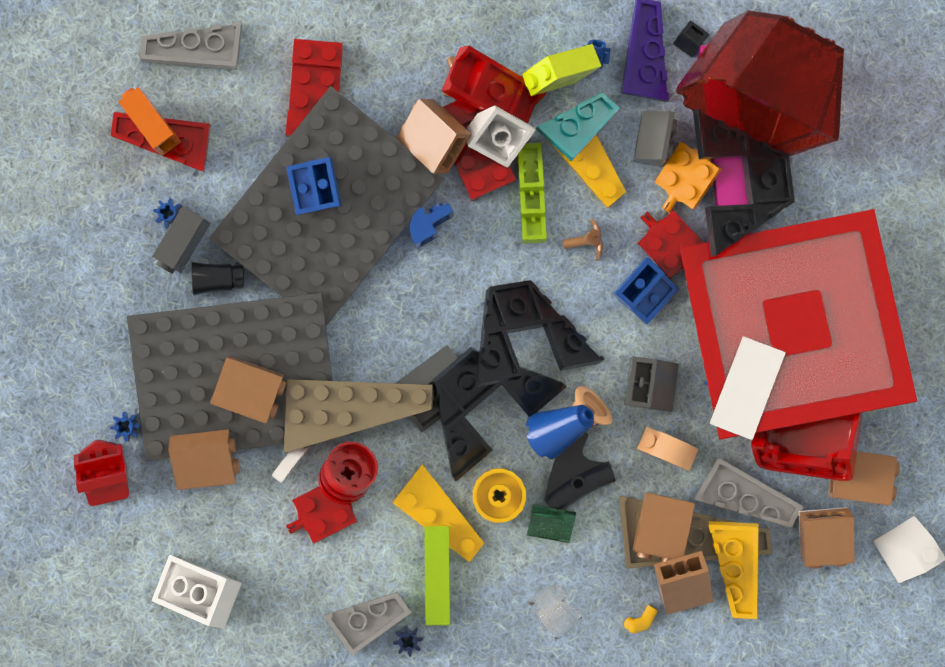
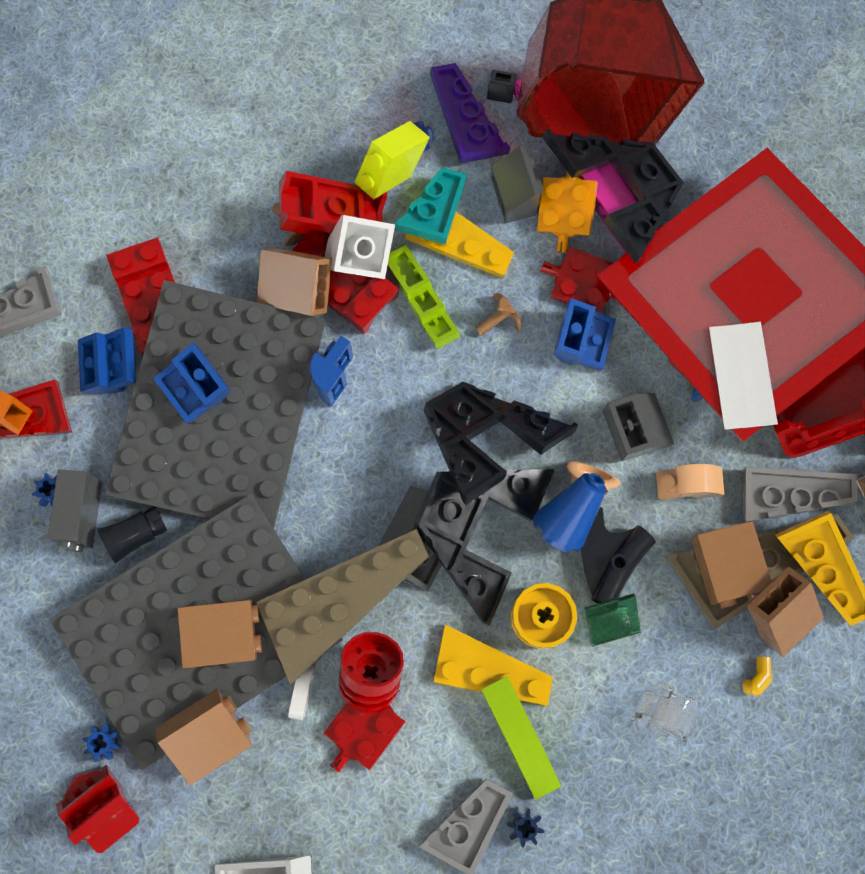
camera: 30 degrees left, 10 degrees down
(256, 129) = (106, 362): none -> blue brick

